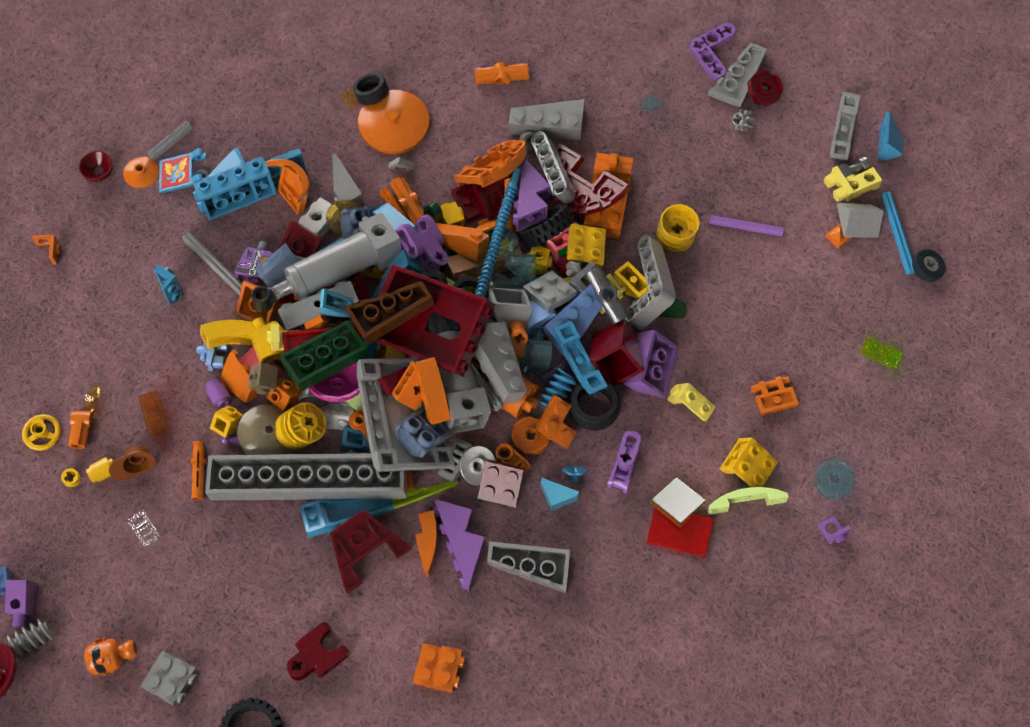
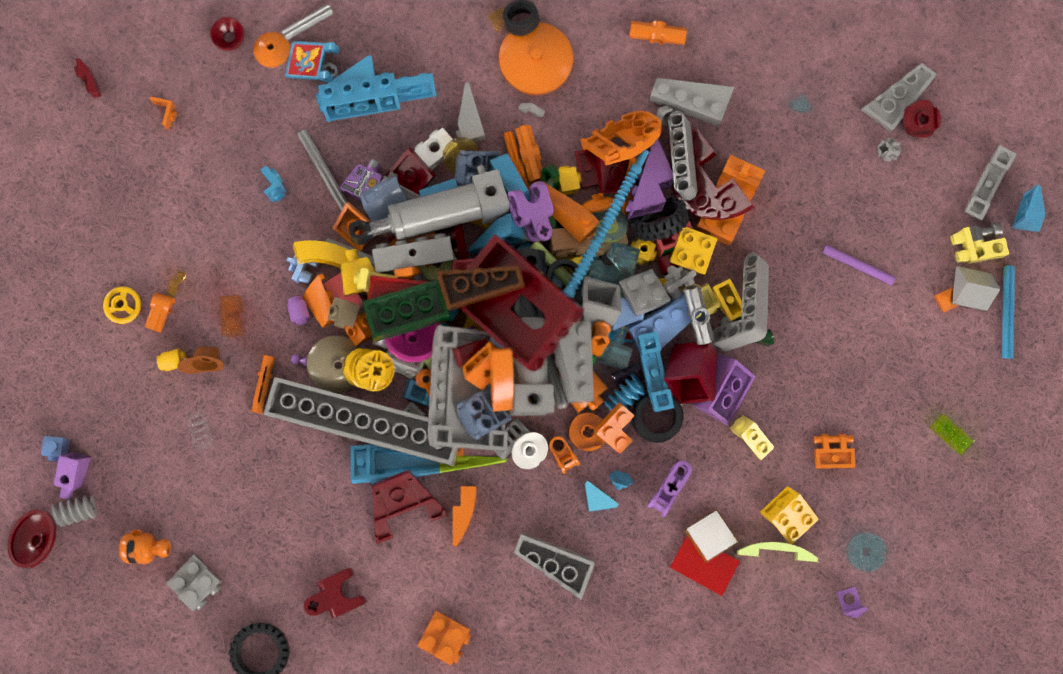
camera: 10 degrees right, 15 degrees up
(76, 479) = (136, 355): yellow bush -> none
(226, 421) = (299, 343): yellow brick -> none
(292, 184) = (418, 107): orange piece -> none
(333, 304) = (429, 260): medium azure slope -> none
(464, 545) = (497, 528): medium lavender slope -> none
(501, 483) = (547, 474): plate -> none
(679, 219) = (798, 248): yellow wheel -> none
(706, 49) = (873, 59): medium lavender beam -> none
(931, 258) = (1035, 359): black bush -> none

